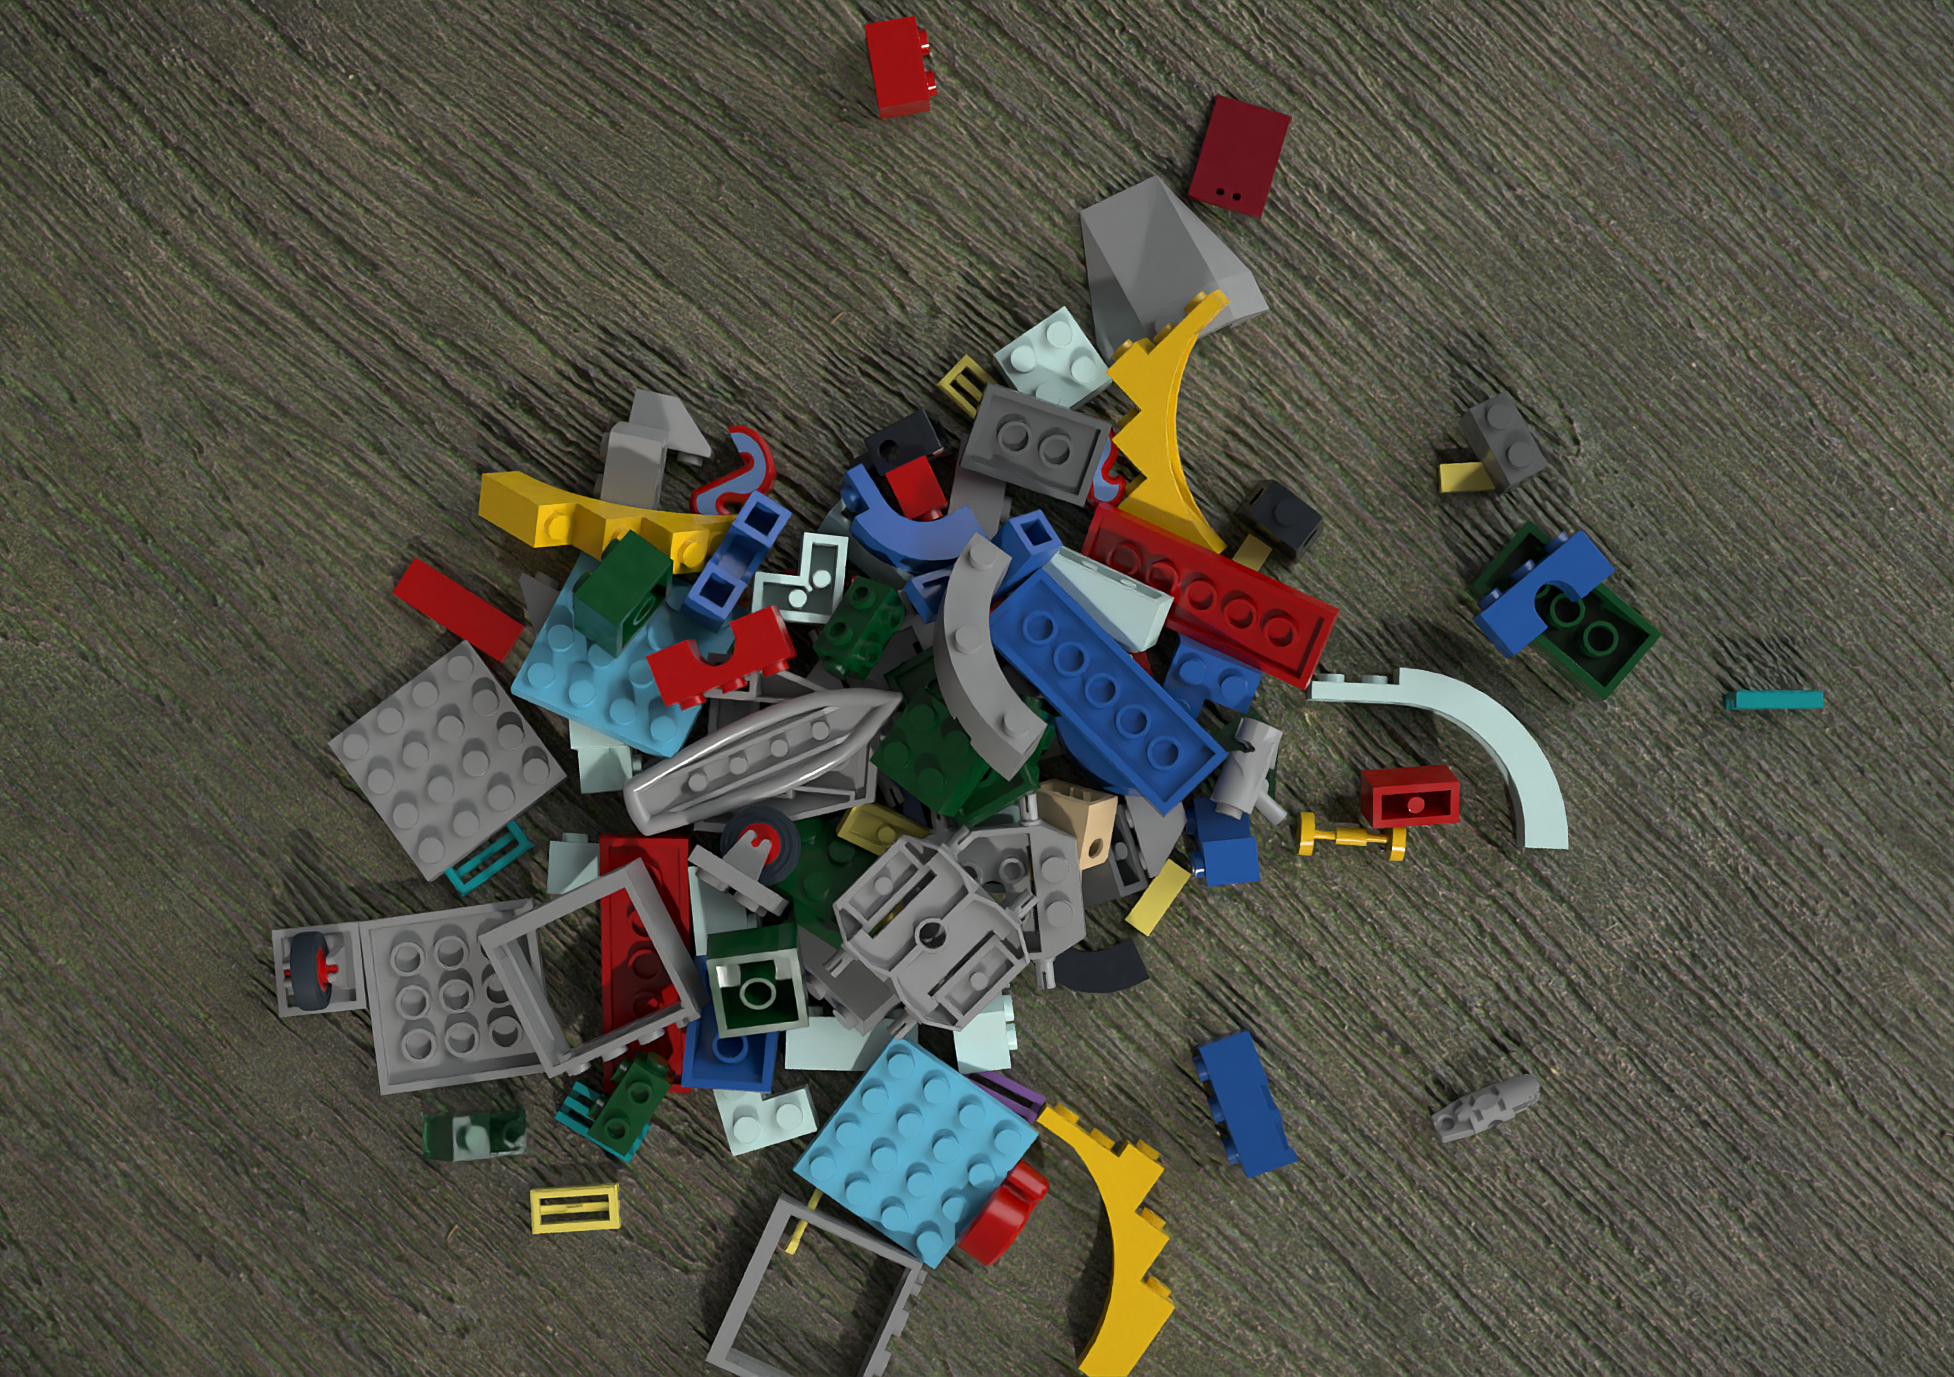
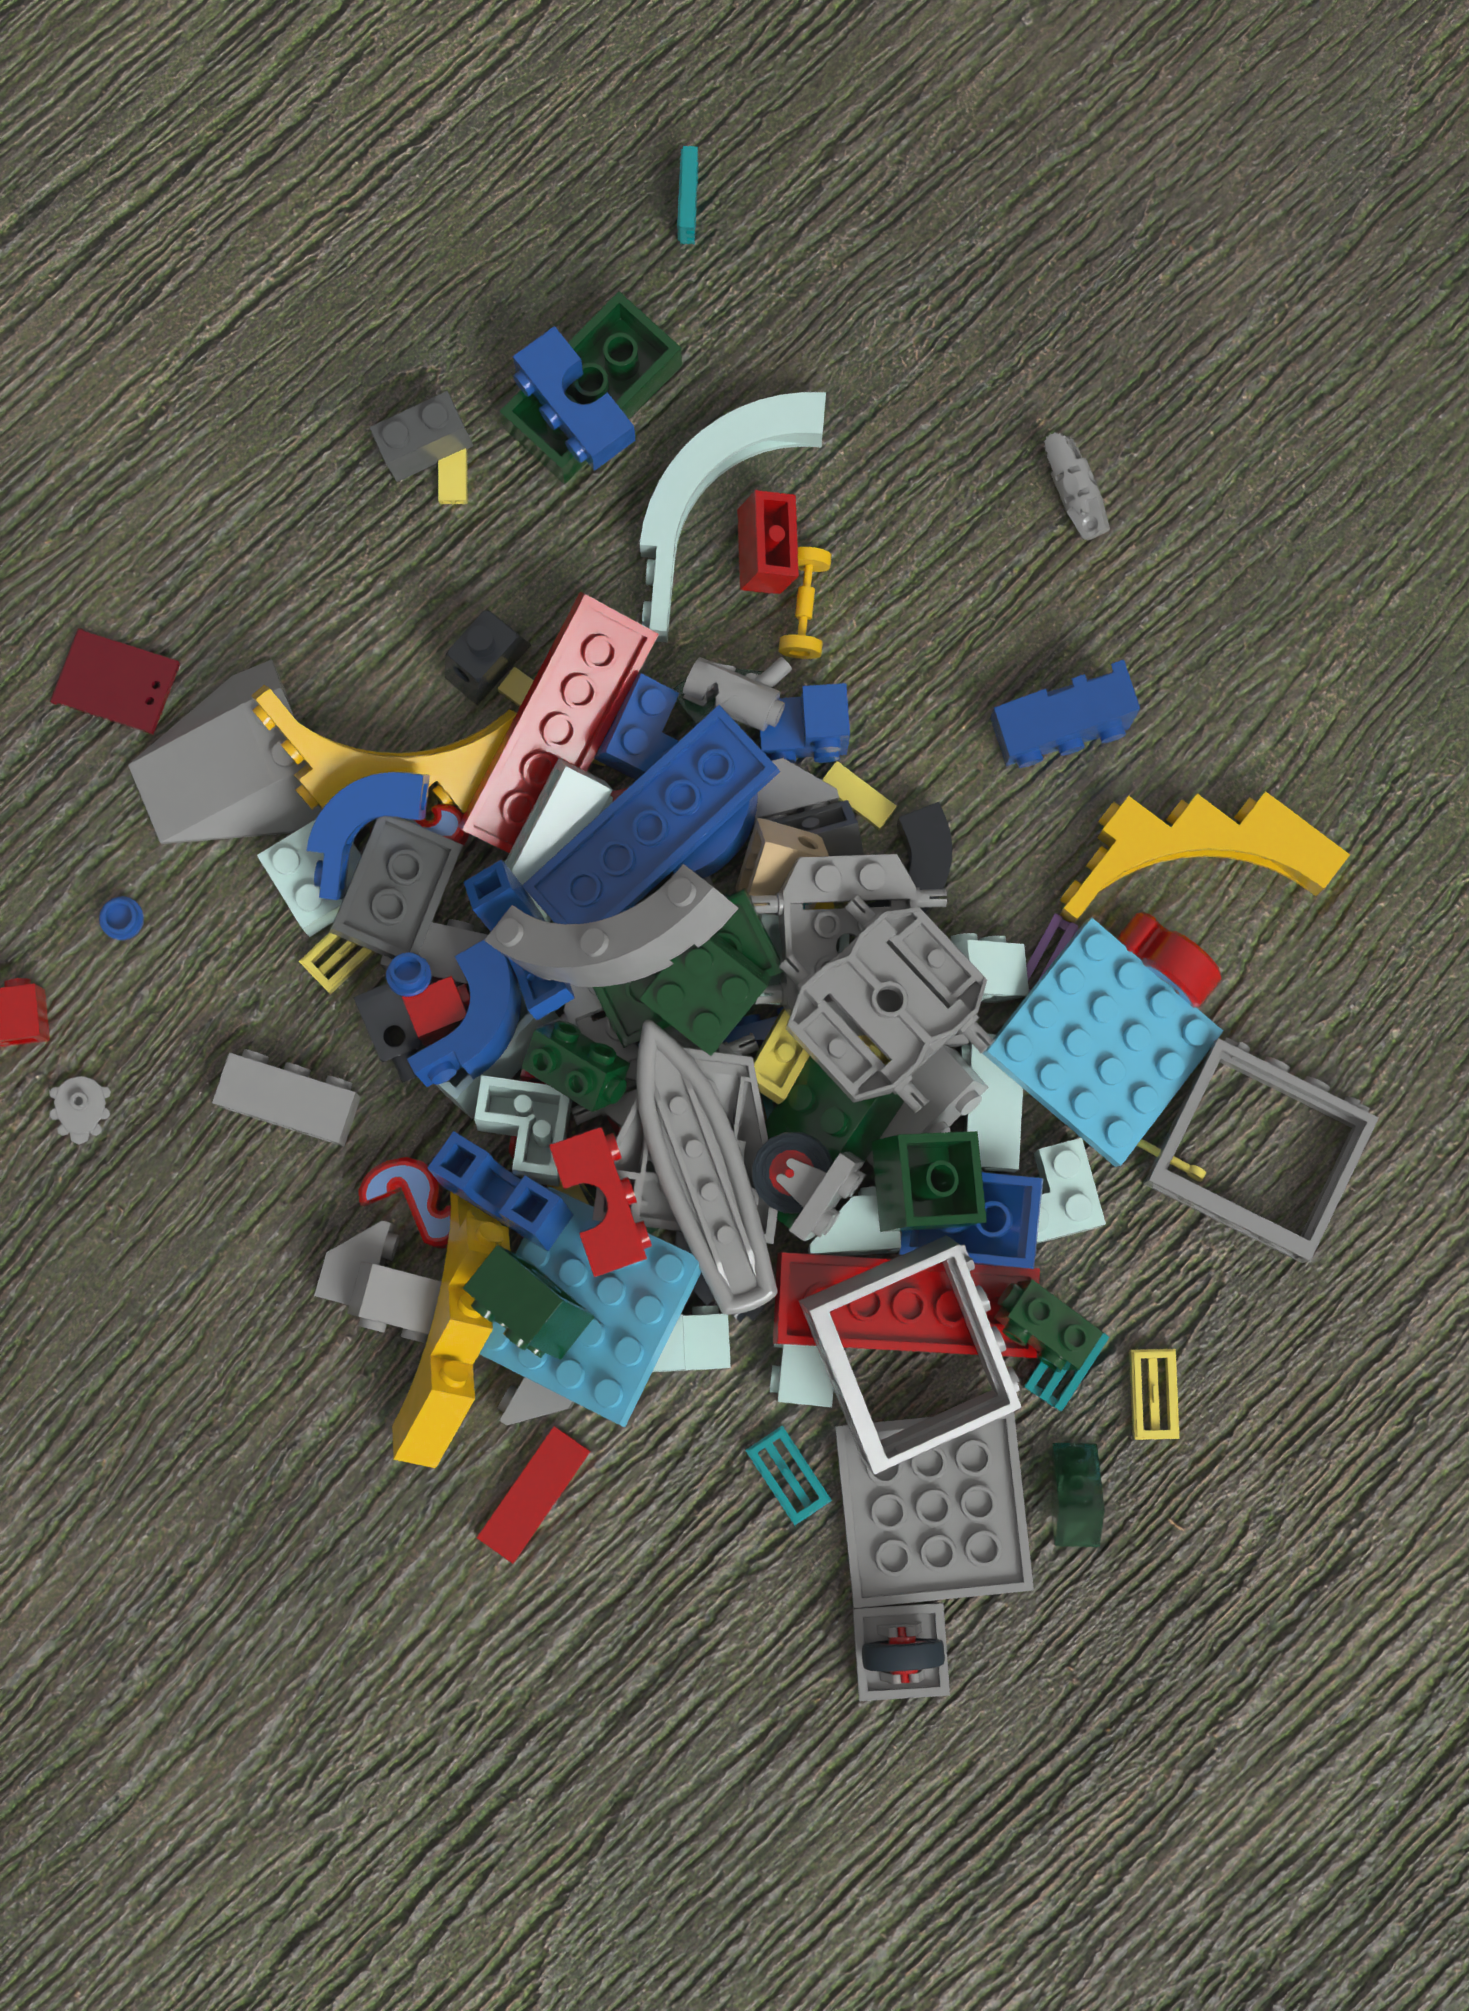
camera: 85 degrees left, 5 degrees down
(448, 760) = (689, 1510): light grey plate -> none
(814, 152) = (79, 1107): none -> light grey piece
(830, 351) = (287, 1097): none -> light grey brick
(946, 460) = (408, 974): none -> blue plate
(1002, 179) = (121, 918): none -> blue plate
(1122, 425) = (350, 810): none -> blue arch

